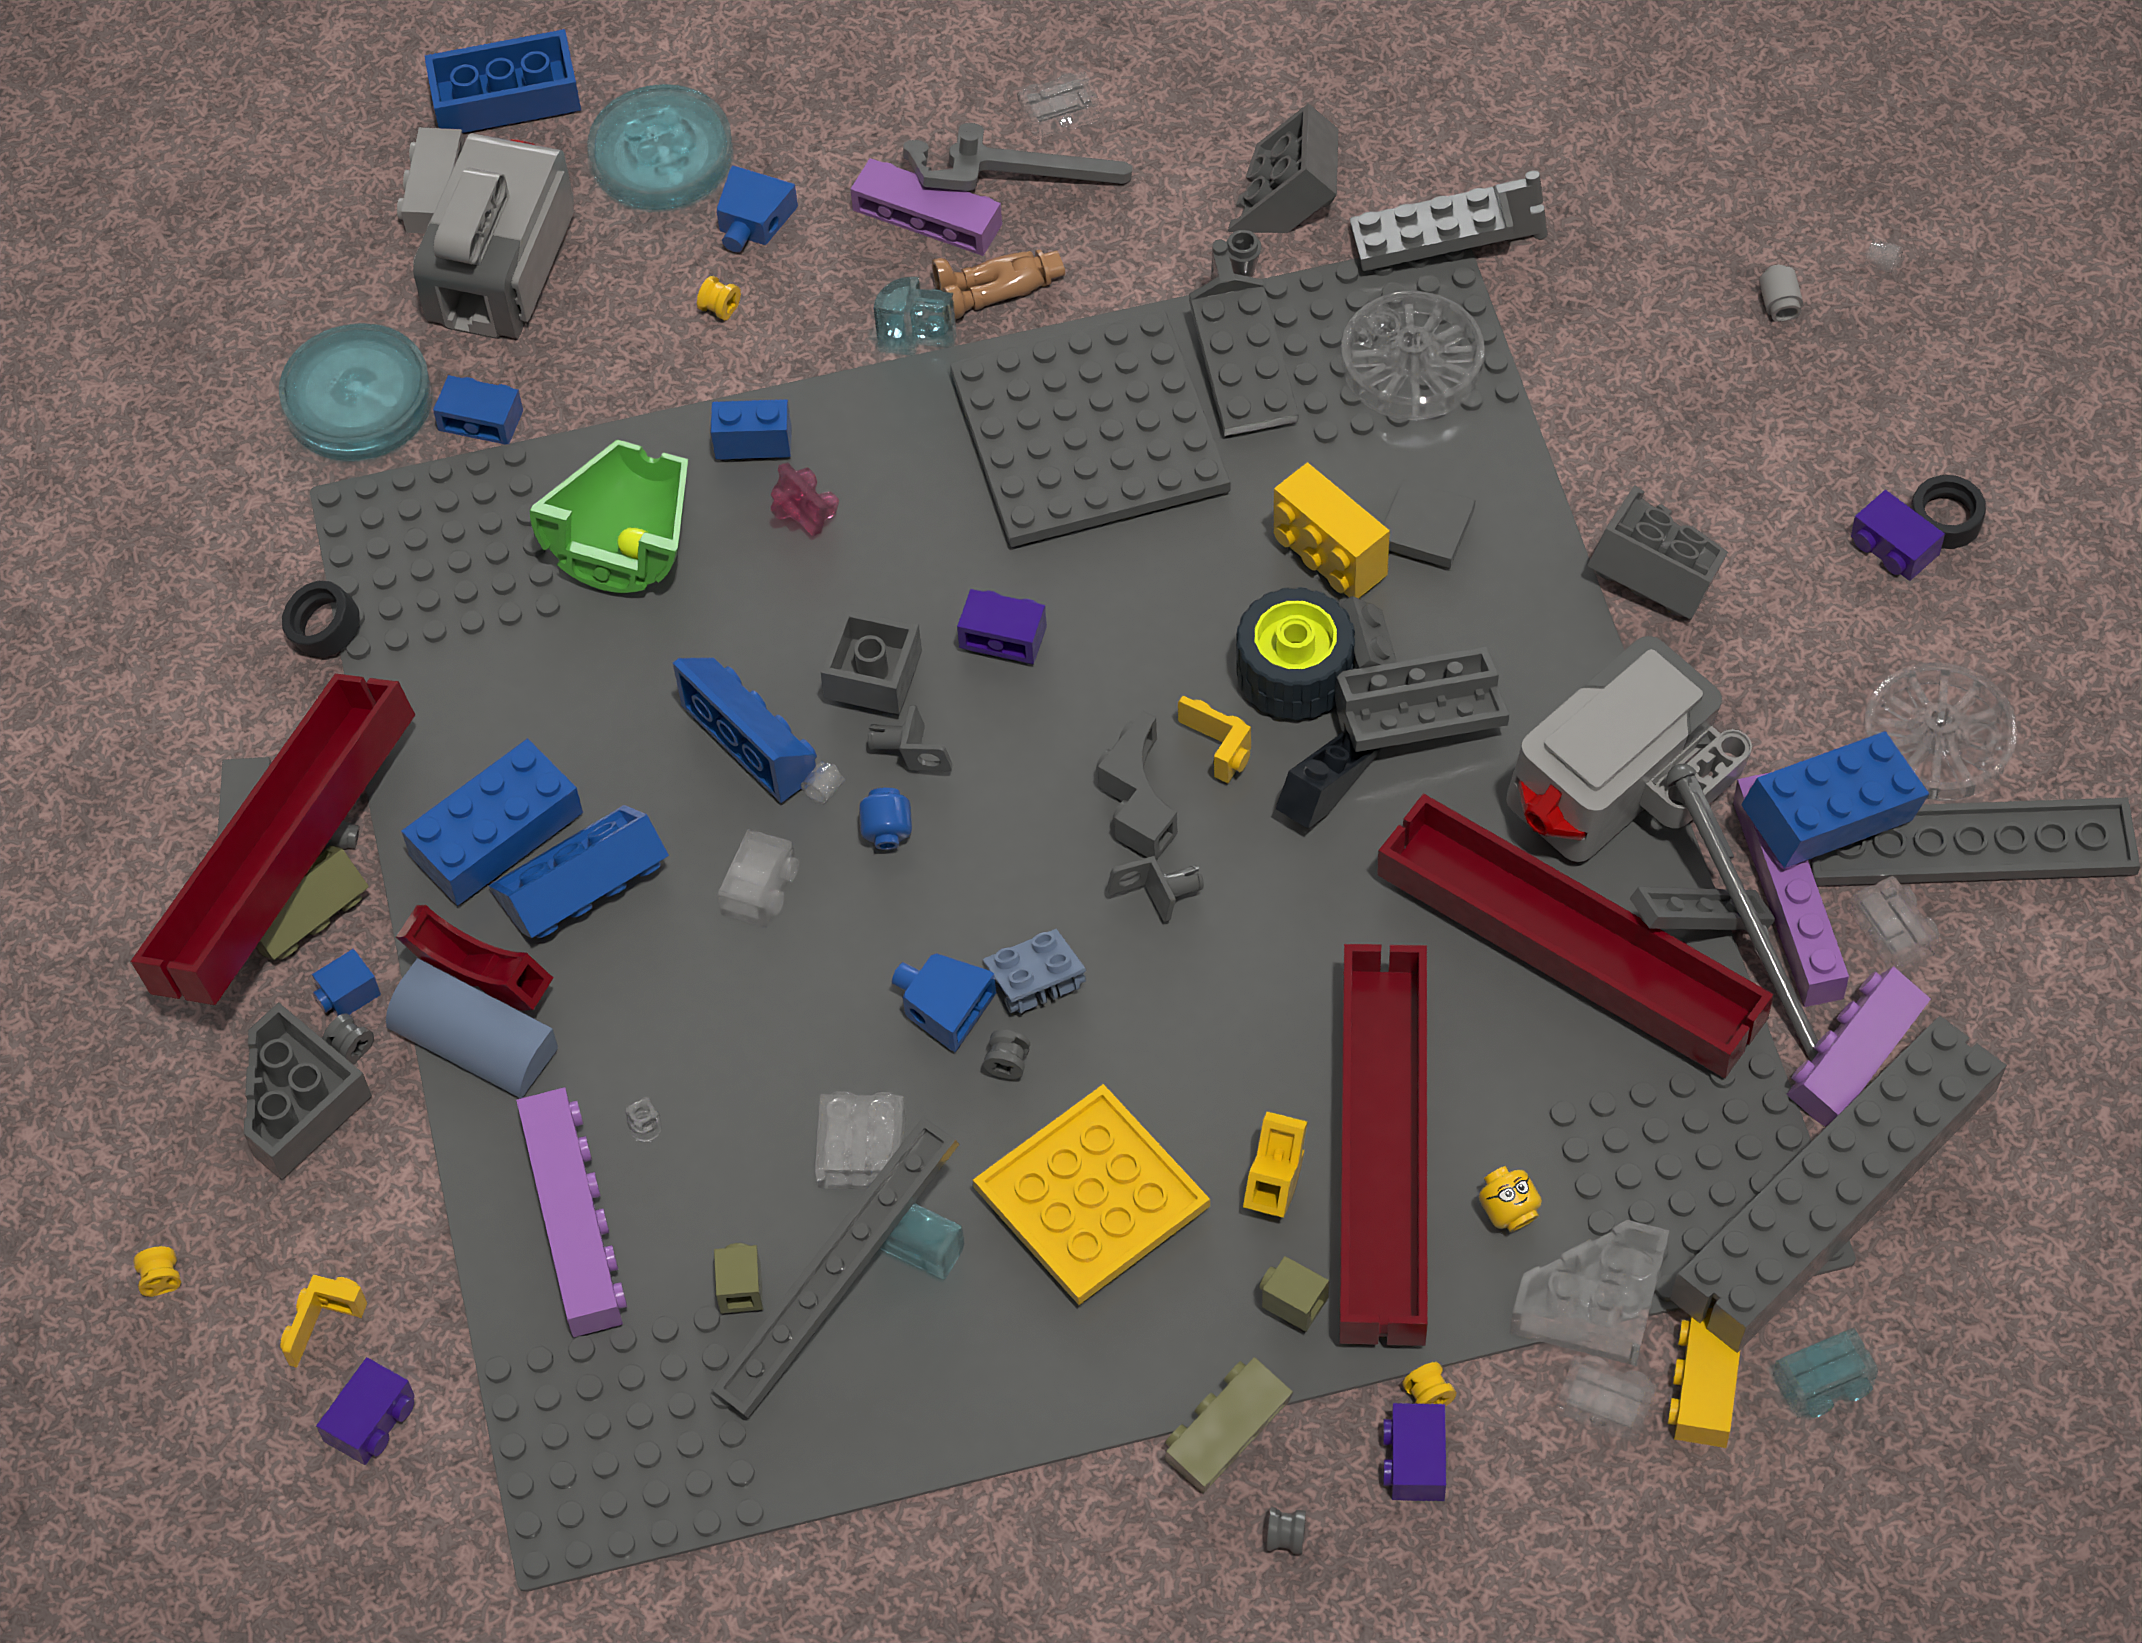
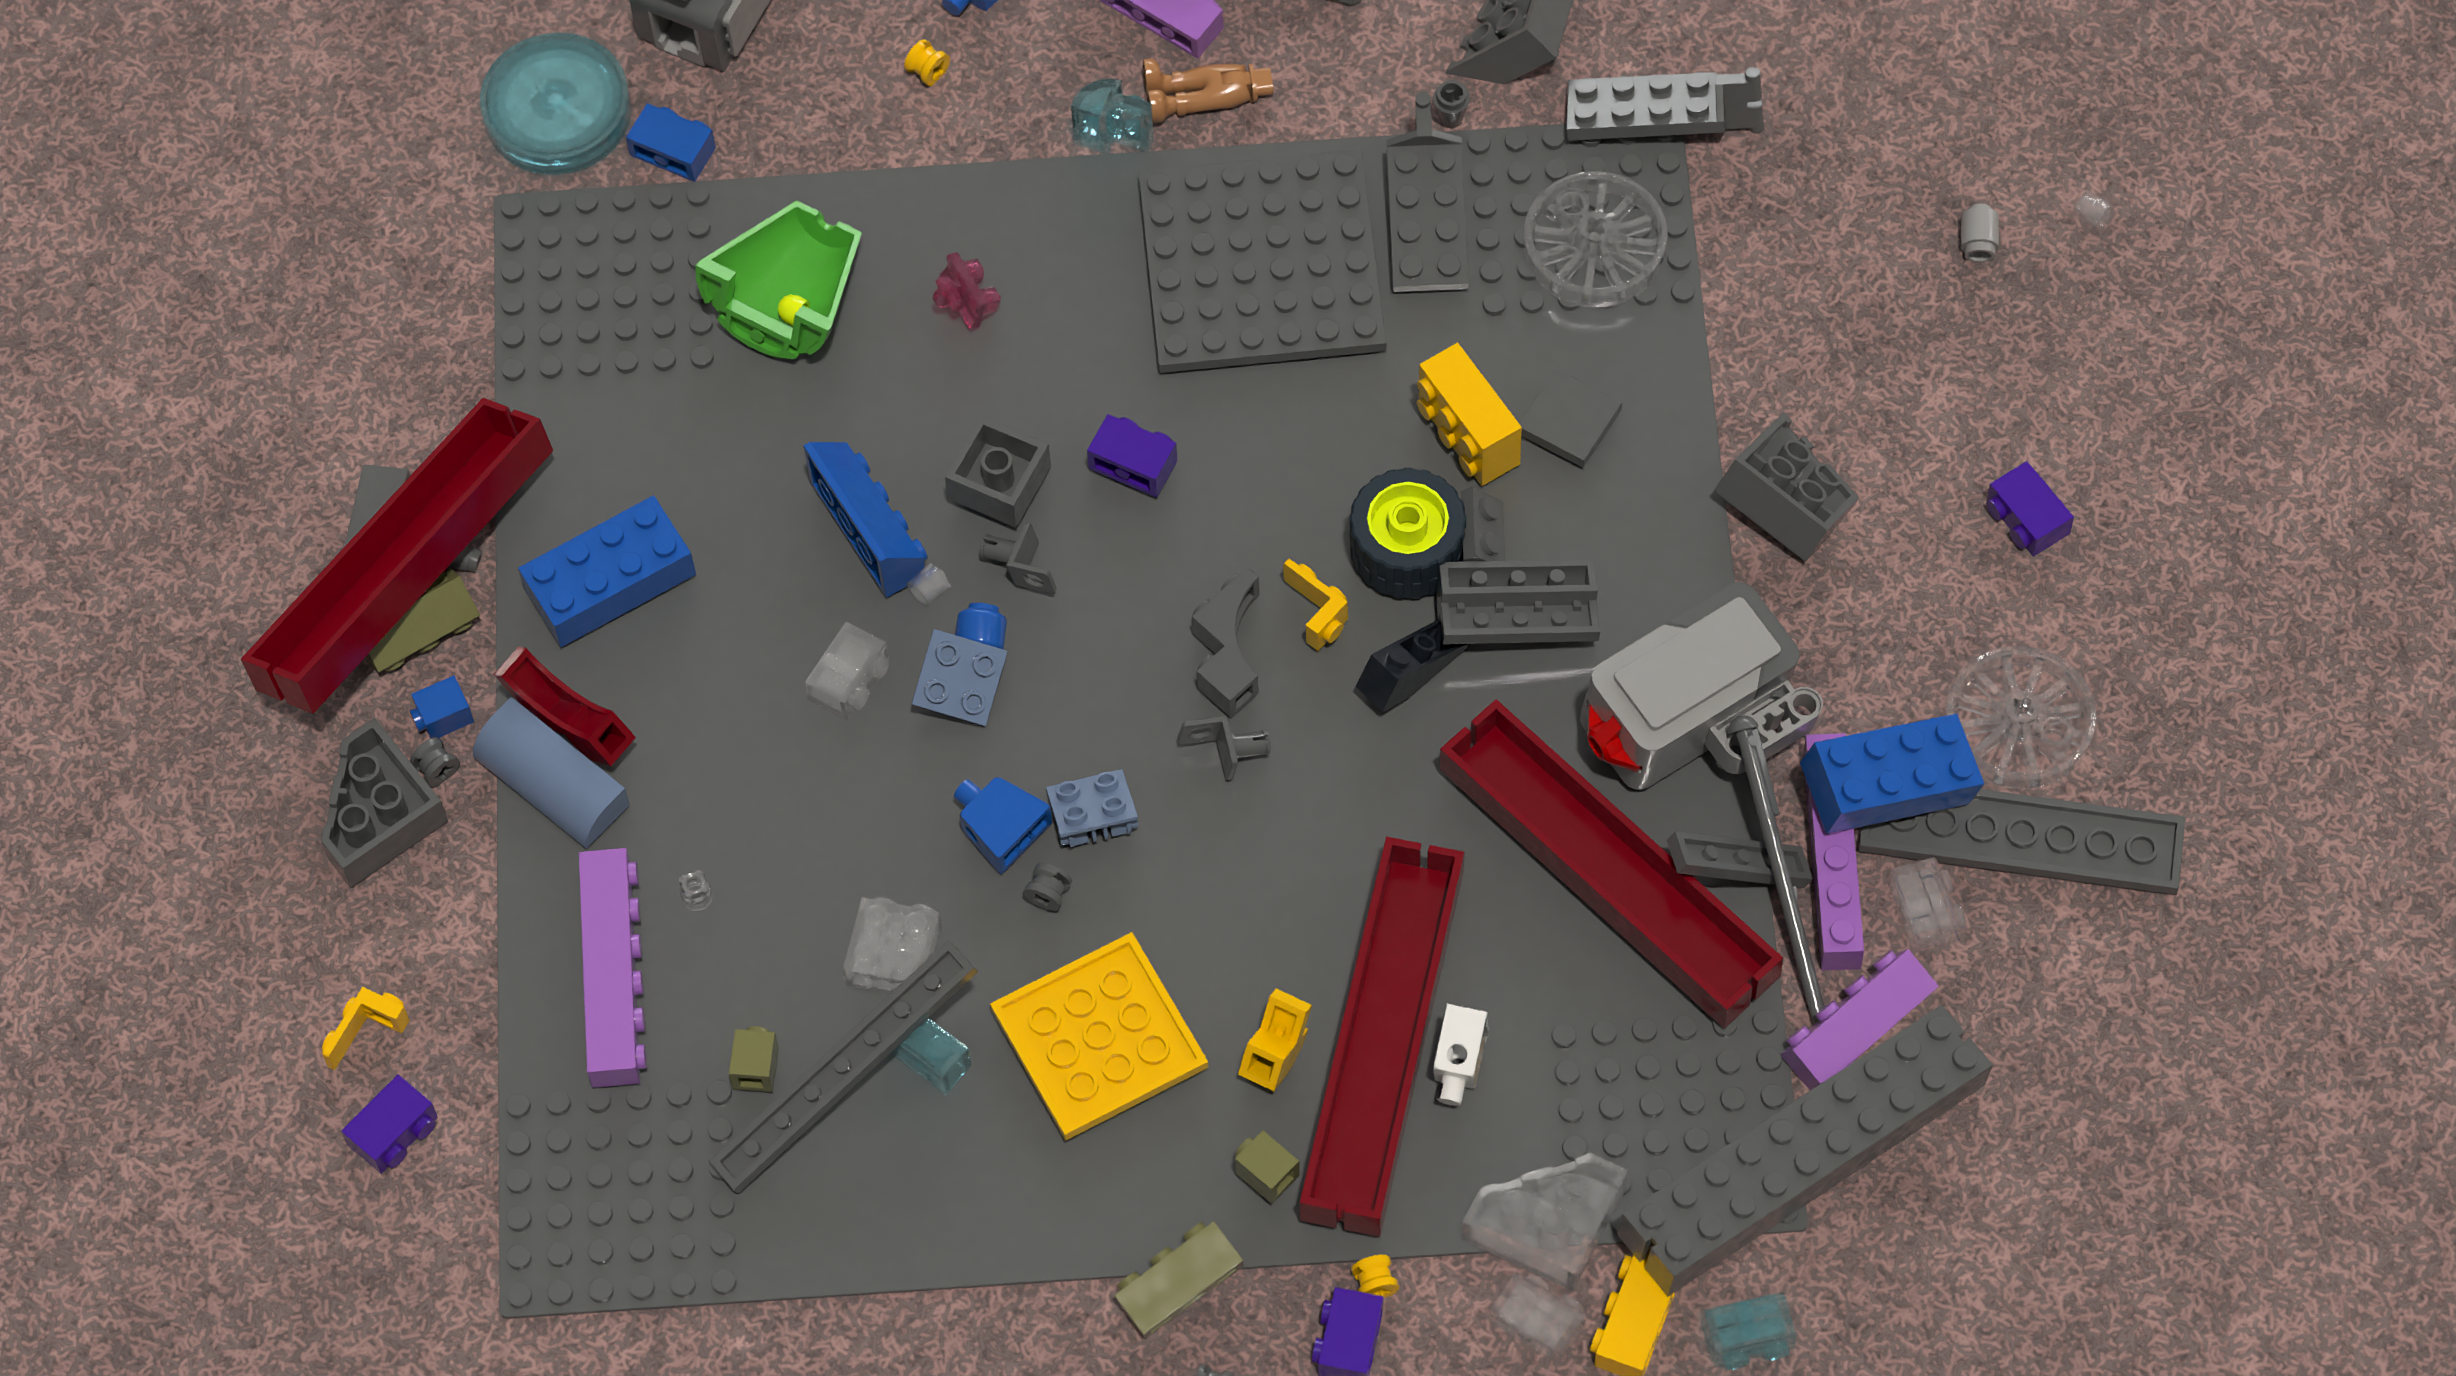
camera: 10 degrees right, 5 degrees up
(157, 1271) = (221, 956): yellow wheel -> none
(303, 605) = (497, 351): black tyre -> none
(580, 871) = (680, 634): blue slope -> none
(751, 429) = (930, 209): blue brick -> none
(873, 864) = (959, 677): none -> sand blue hinge
(1466, 1134) = (1461, 1038): none -> white torso
(1510, 1199) = (1490, 1111): yellow head -> none
(1960, 490) = (2103, 470): black tyre -> none

